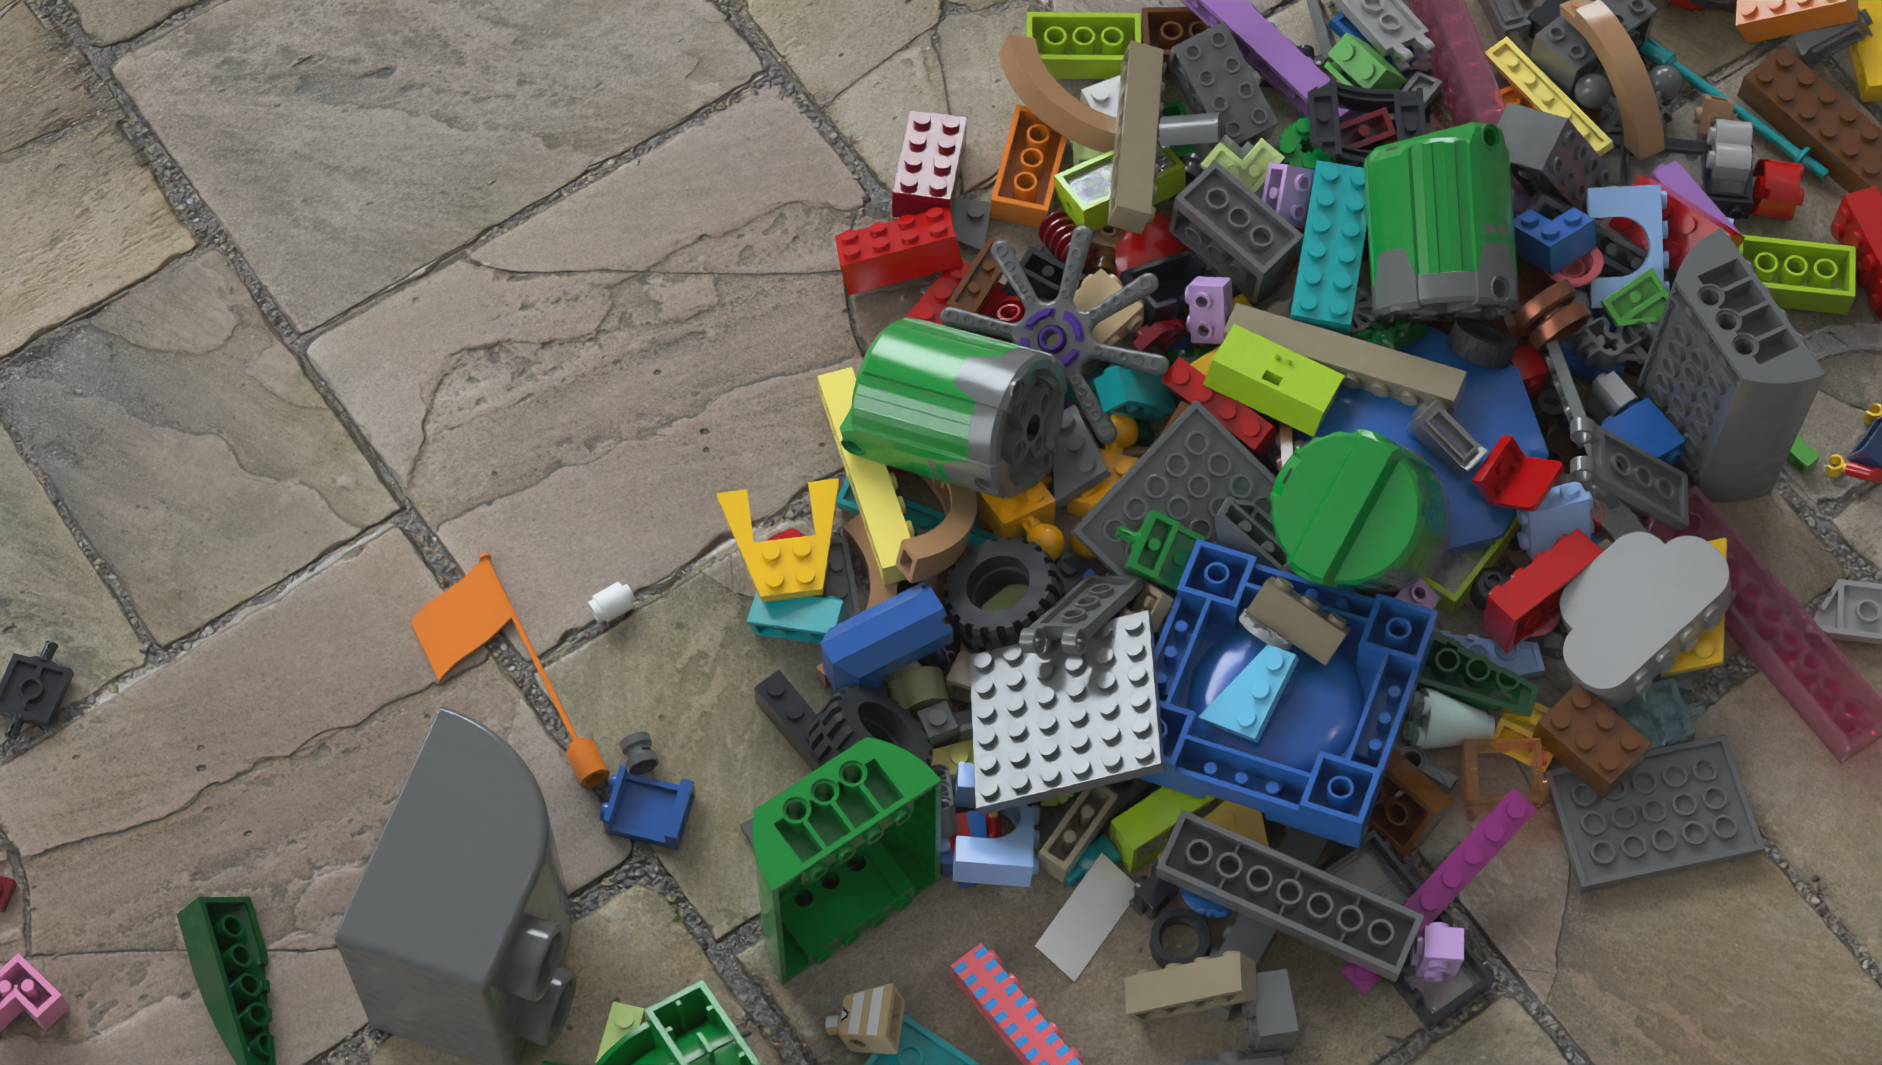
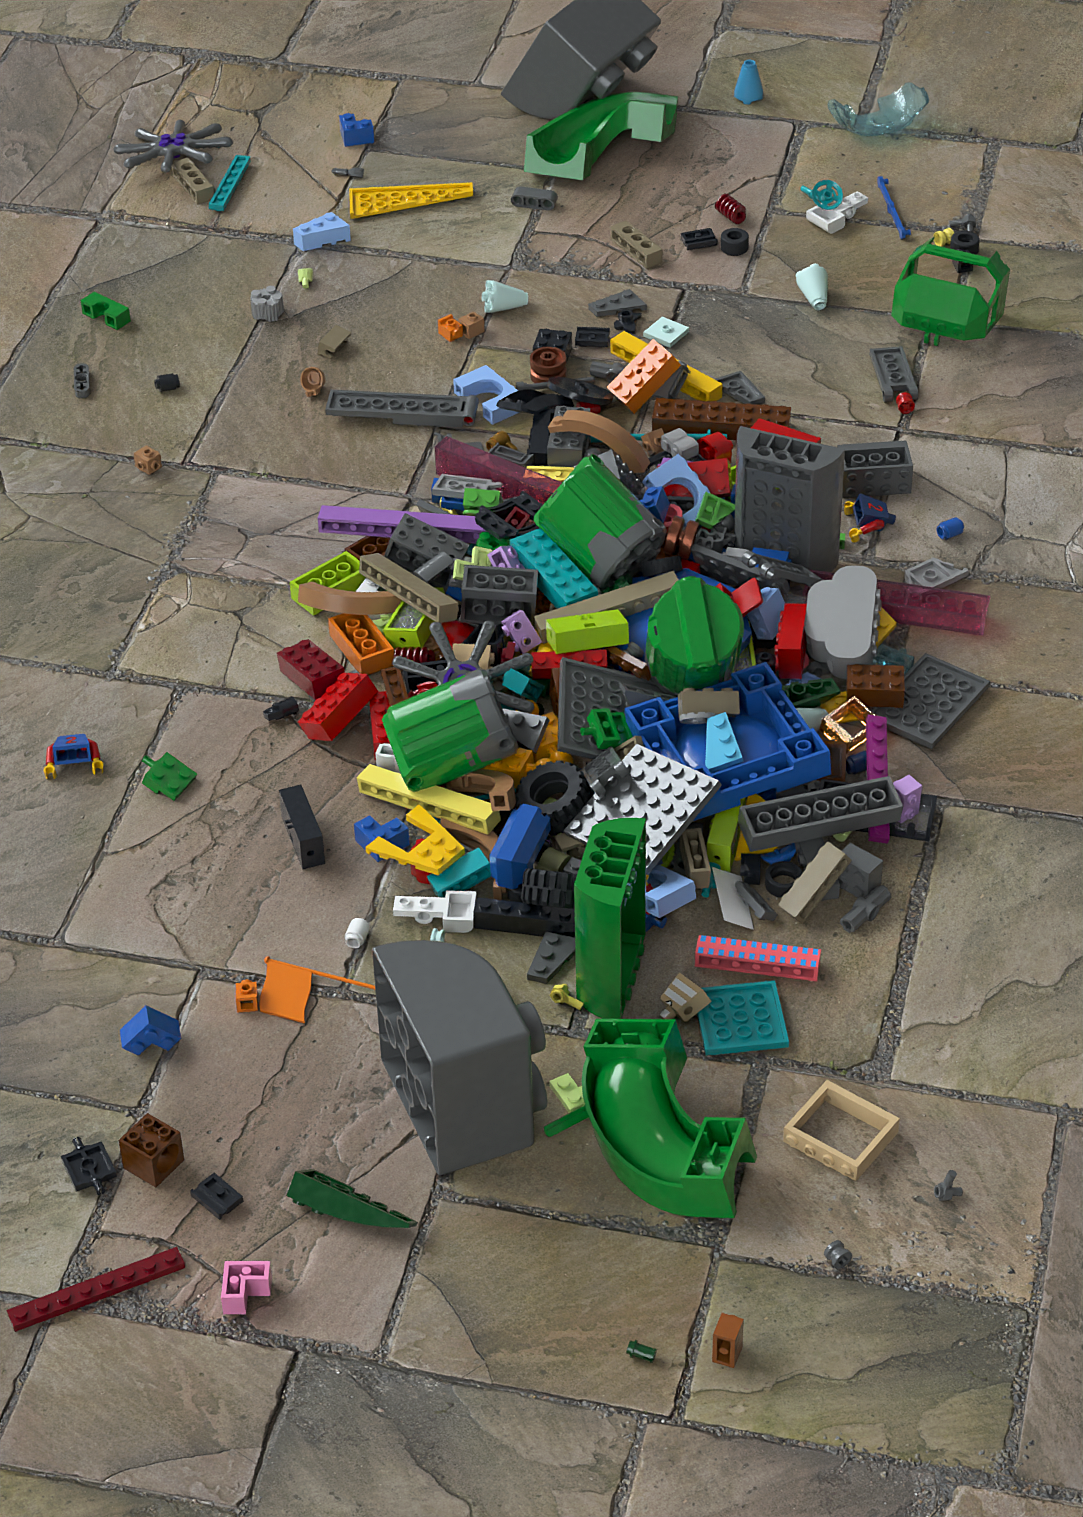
camera: 40 degrees left, 20 degrees down
(98, 729) = (151, 1150): none -> reddish brown brick
(117, 847) = (217, 1196): none -> black plate
(256, 558) = (149, 1028): none -> blue brick
(409, 601) = (246, 991): none -> orange brick
(556, 79) = (70, 750): none -> torso
(627, 199) = (167, 776): none -> green plate
(690, 398) = (302, 826): none -> black brick
(692, 685) = (438, 935): none -> light aqua bush
(745, 658) = (454, 909): none -> white plate
(746, 887) = (561, 994): none -> light yellow piece
(771, 490) = (393, 831): none -> blue brick
(846, 197) = (281, 709): none -> black hinge
(1110, 944) = (755, 901): none -> dark grey hinge
(1450, 835) = (856, 763): none -> dark blue brick

